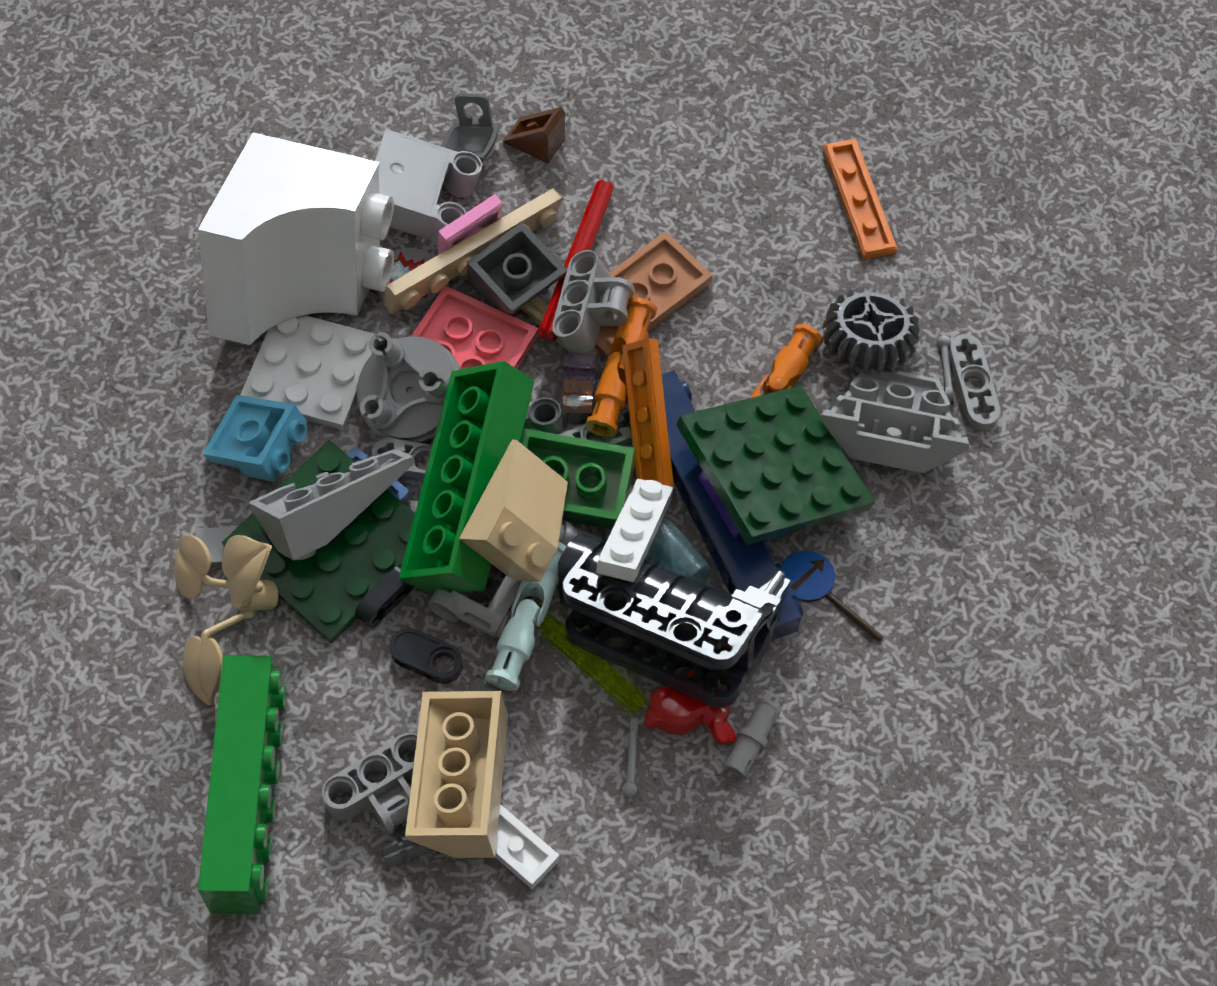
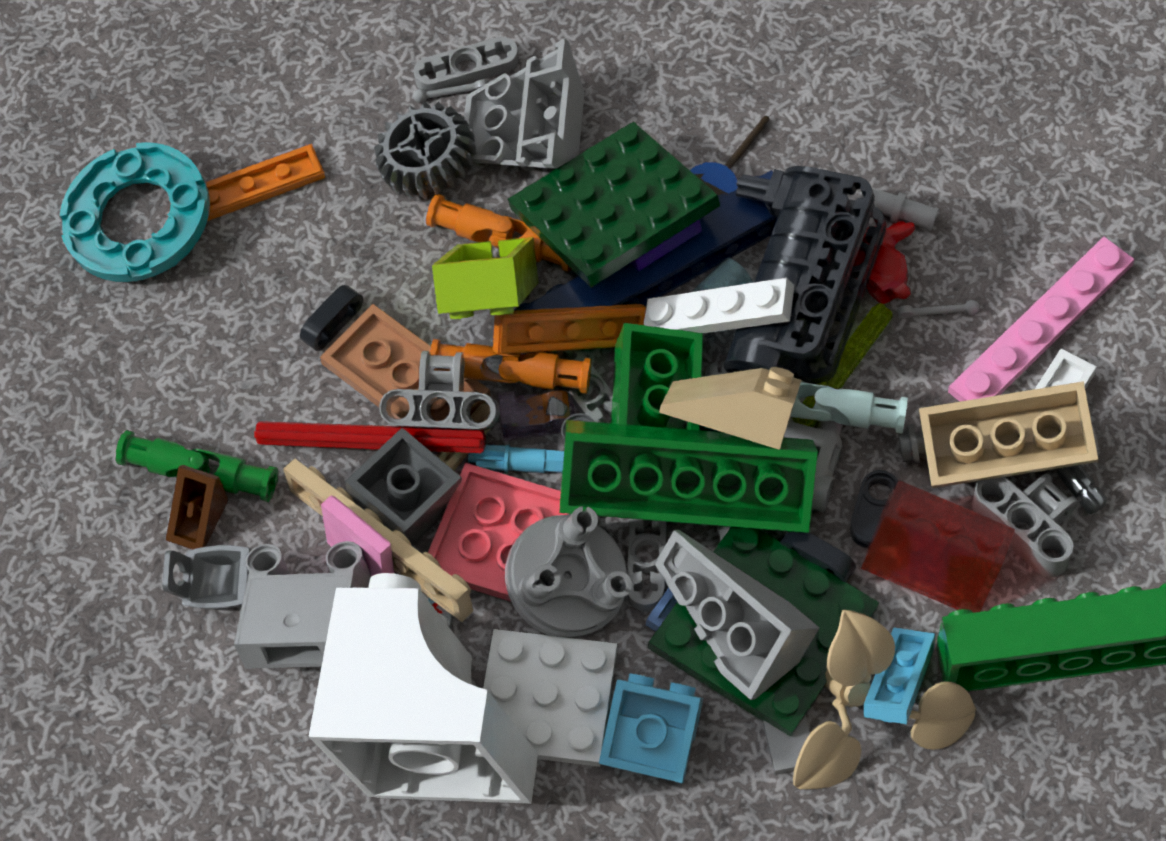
camera: 90 degrees left, 0 degrees up
(243, 628) = (897, 687): none -> medium azure plate
(367, 692) = (937, 548): none -> clear red slope
(540, 366) = (518, 459): none -> medium azure piece
(587, 124) = (166, 456): none -> green piece
(598, 852) = (1043, 323): none -> bright pink plate
(698, 336) = (473, 280): none -> lime piece
(706, 245) = (331, 317): none -> black beam
(841, 144) = (107, 175): none -> teal plate

